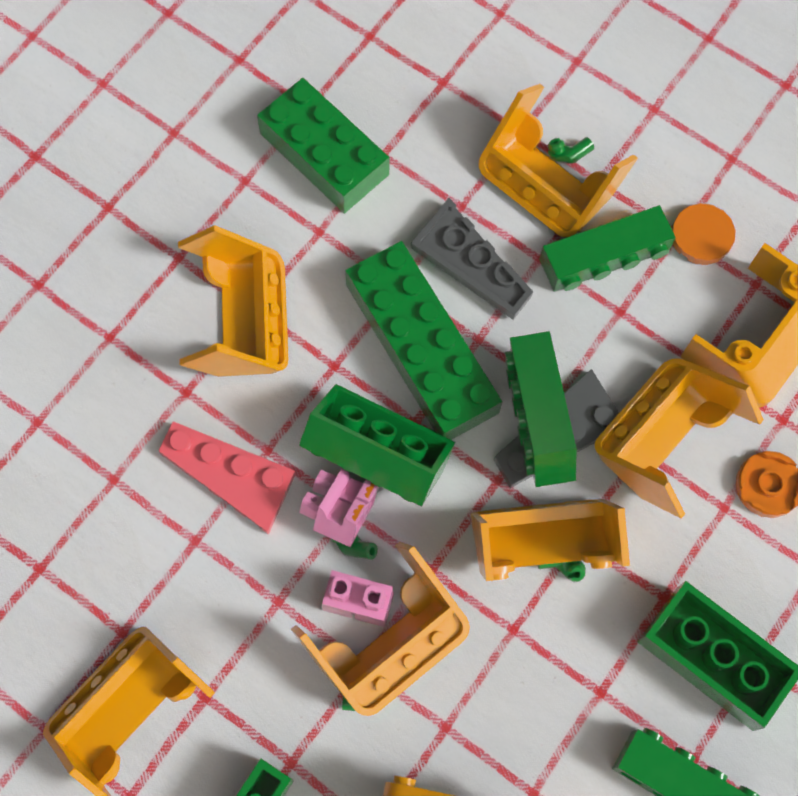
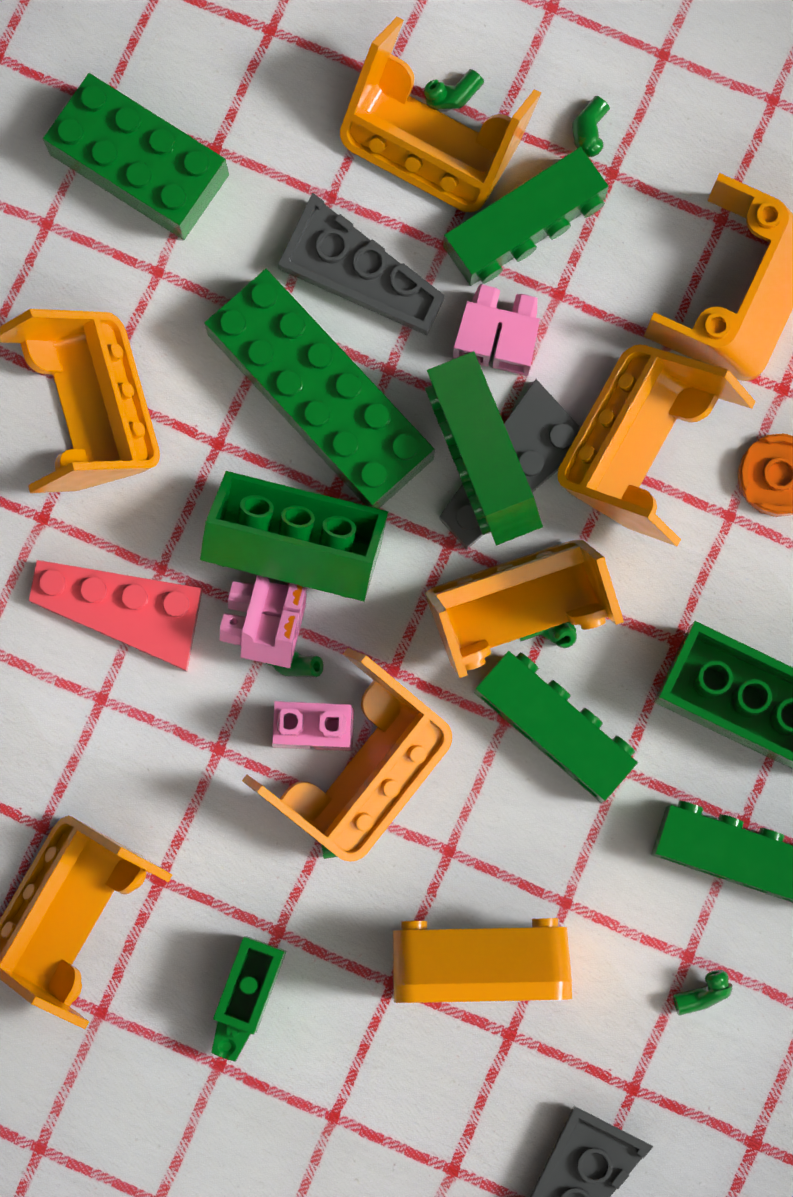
camera: 10 degrees left, 10 degrees up
(555, 643) = (556, 726): none -> green brick
(583, 326) = (516, 336): none -> bright pink hips
(665, 194) = (585, 126): none -> green arm
(703, 233) = (643, 168): orange tile -> none

